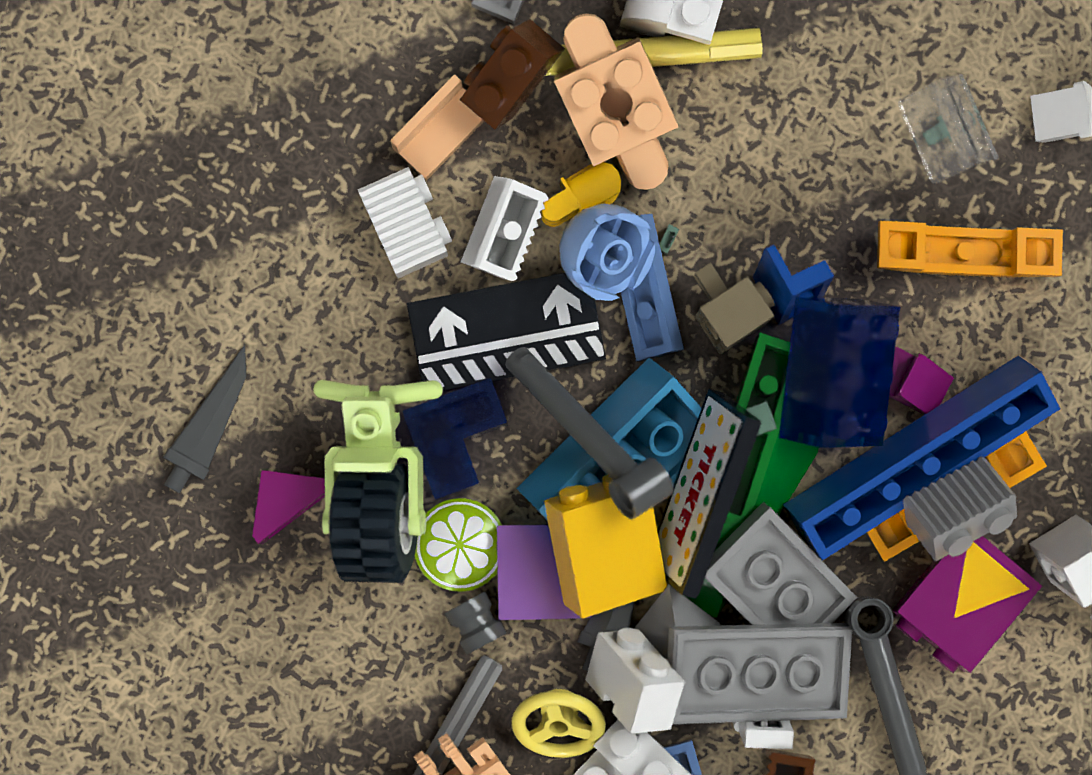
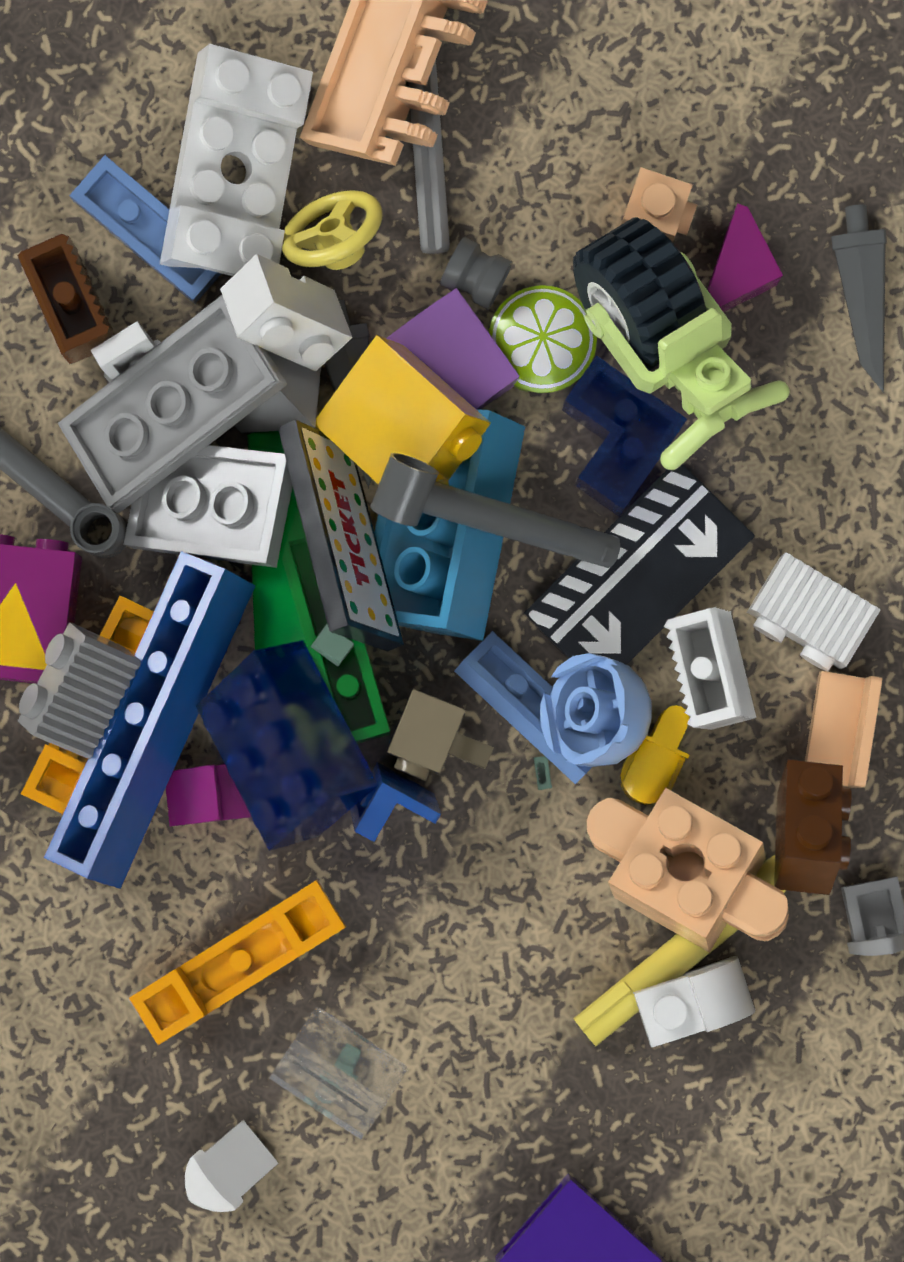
camera: 145 degrees right, 0 degrees up
(314, 580) = (661, 202): none -> light nougat brick

